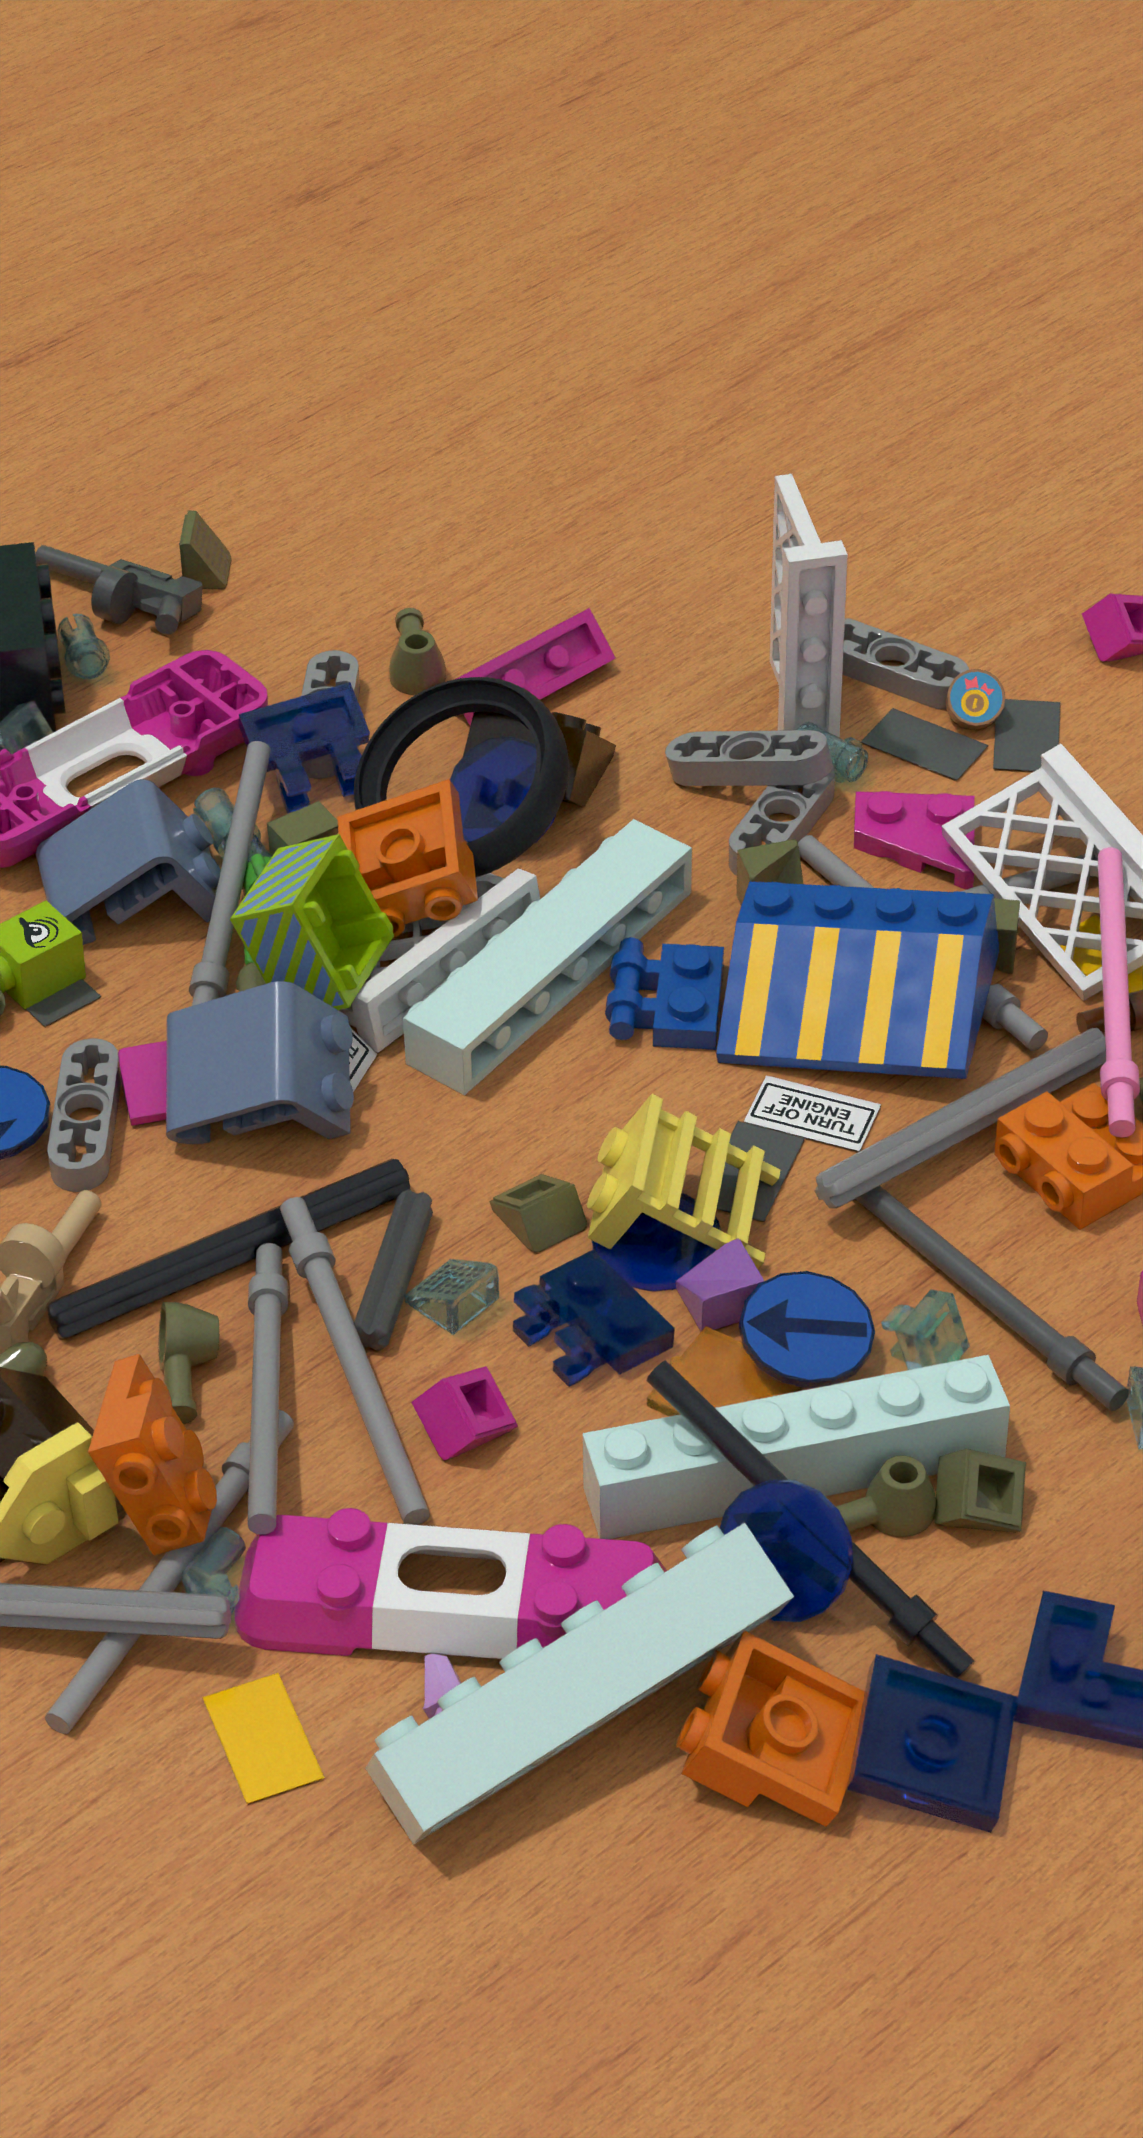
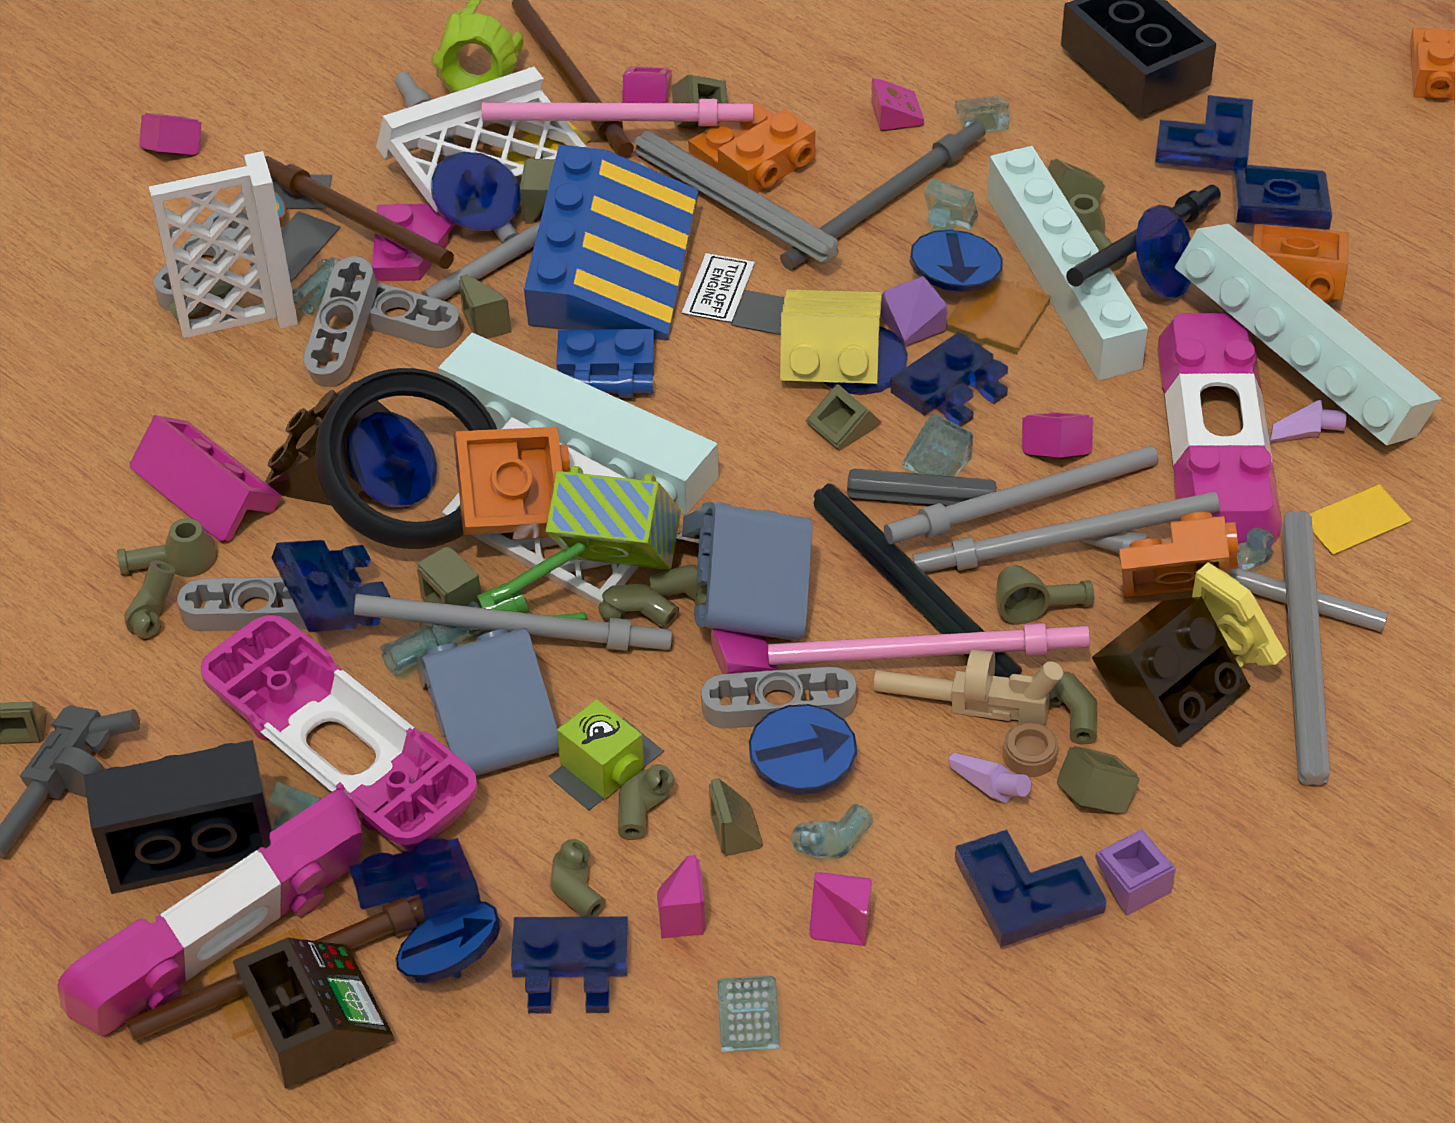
camera: 95 degrees left, 5 degrees up
(84, 1314) = (1033, 639): none -> bright pink bar
(336, 635) = (145, 610): none -> olive arm
(971, 854) = (475, 191): none -> clear blue piece
(1020, 730) = (299, 182): none -> reddish brown bar

